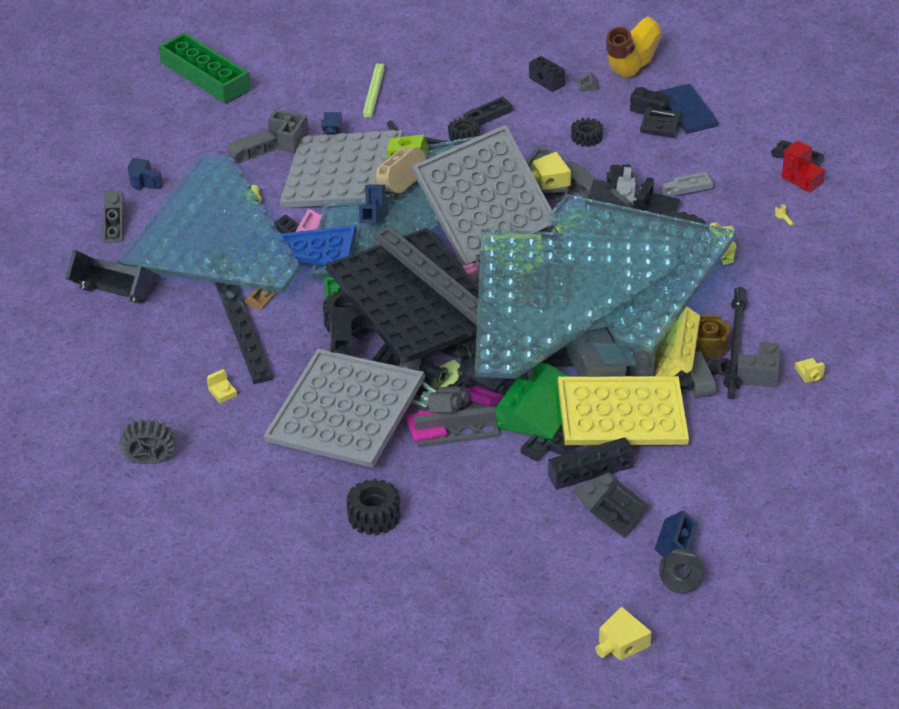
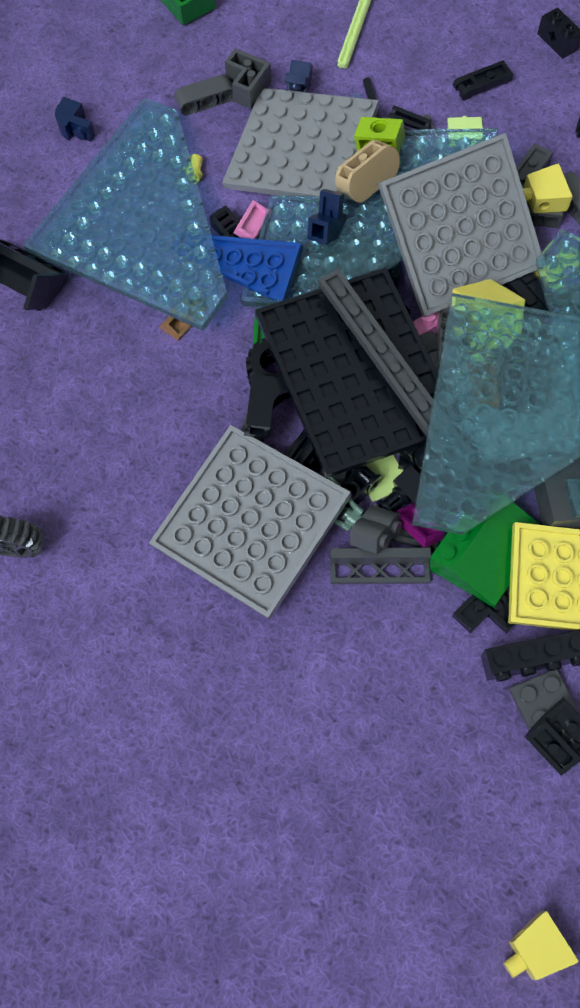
camera: 10 degrees right, 25 degrees up
(114, 216) = (31, 178): dark grey slope -> none
(220, 386) = (112, 455): light yellow bracket -> none
(244, 333) = (153, 378): black plate -> none
(376, 518) = (254, 661): black tyre -> none
(423, 434) = (340, 569): dark pink piece -> none
(463, 128) = (451, 114): black tyre -> none

